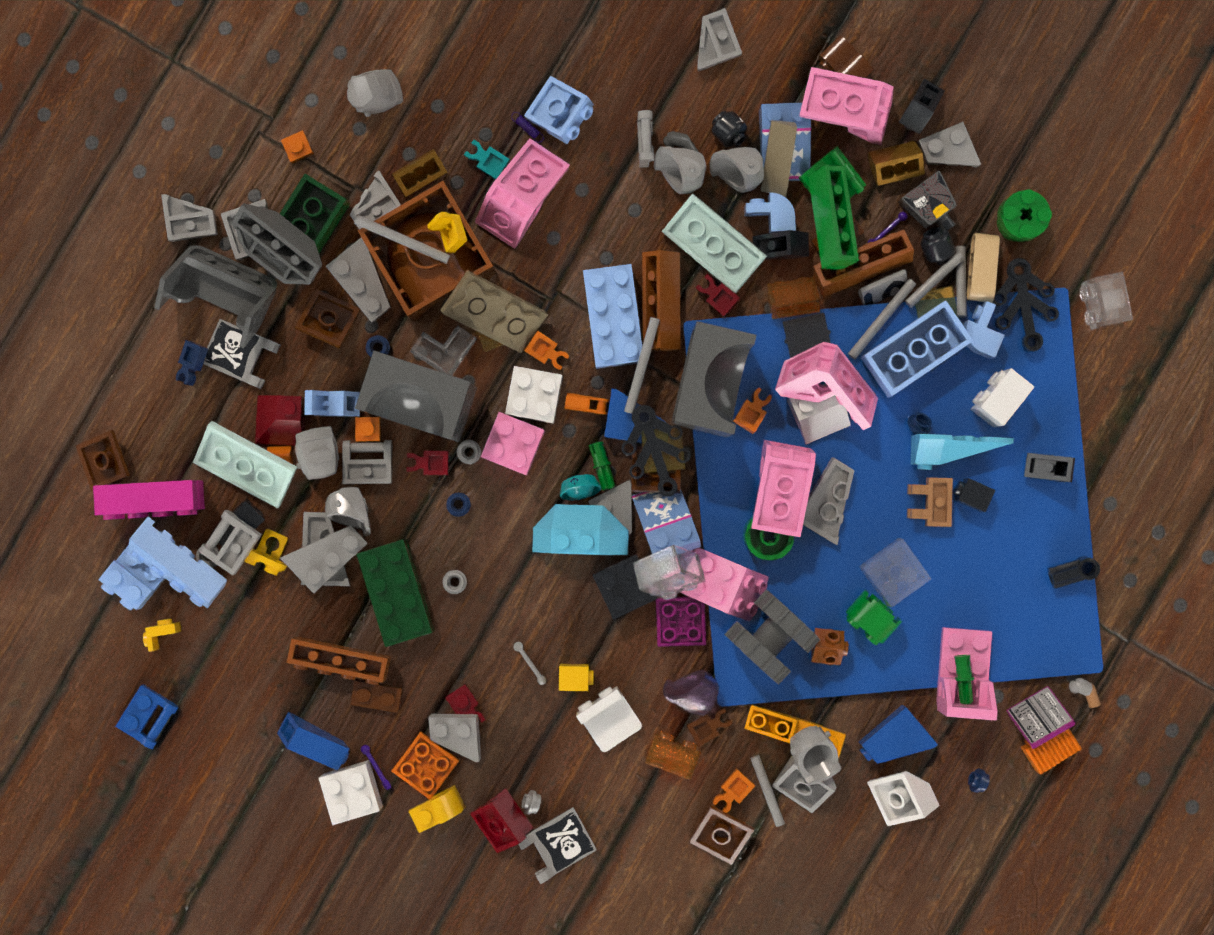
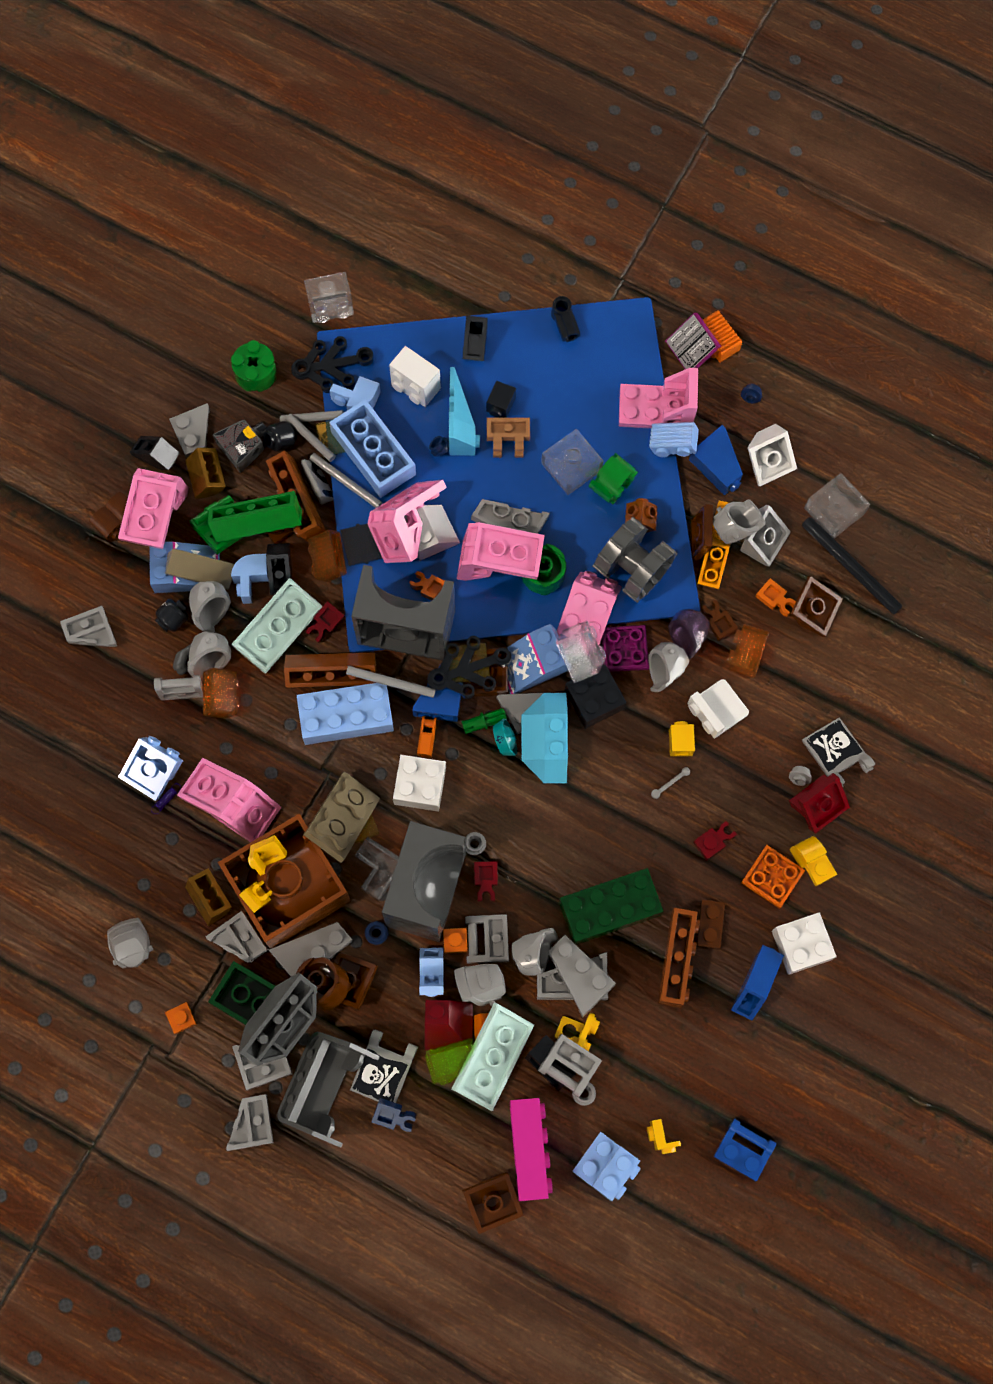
camera: 90 degrees left, 15 degrees down
(175, 564) = (593, 1121): light blue wedge -> none
(242, 418) = (447, 1061): none -> clear neon green slope
(326, 293) = (330, 980): none -> reddish brown brick
(365, 749) = (763, 932): dark purple hinge -> none
(402, 239) = (273, 899): light grey bar -> none
(406, 220) = (255, 896): none -> yellow tile
(447, 581) = (601, 847): light grey plate -> none
(457, 733) = (740, 846): light grey wing -> none
(466, 504) = (524, 845): dark blue plate -> none
(490, 161) = (198, 831): teal plate -> none
(513, 443) = (465, 801): bright pink brick -> none
(543, 348) = (376, 776): orange plate -> none
(638, 182) = (220, 693): none -> clear orange brick
(656, 665) = (666, 664): none -> light grey helmet
(767, 790) = (773, 569): light grey bar -> none
(769, 878) = (852, 565): none -> black axle
(808, 713) = (701, 532): none -> reddish brown tile
(837, 867) = (837, 505): none -> clear brick
(902, 216) = (253, 468): dark purple hinge -> none
(920, 688) = (674, 438): none -> light blue brick
(964, 678) = (662, 402): green axle -> none
(983, 267) = (299, 398): tan beam -> none
(1085, 688) = (666, 309): light grey arm -> none

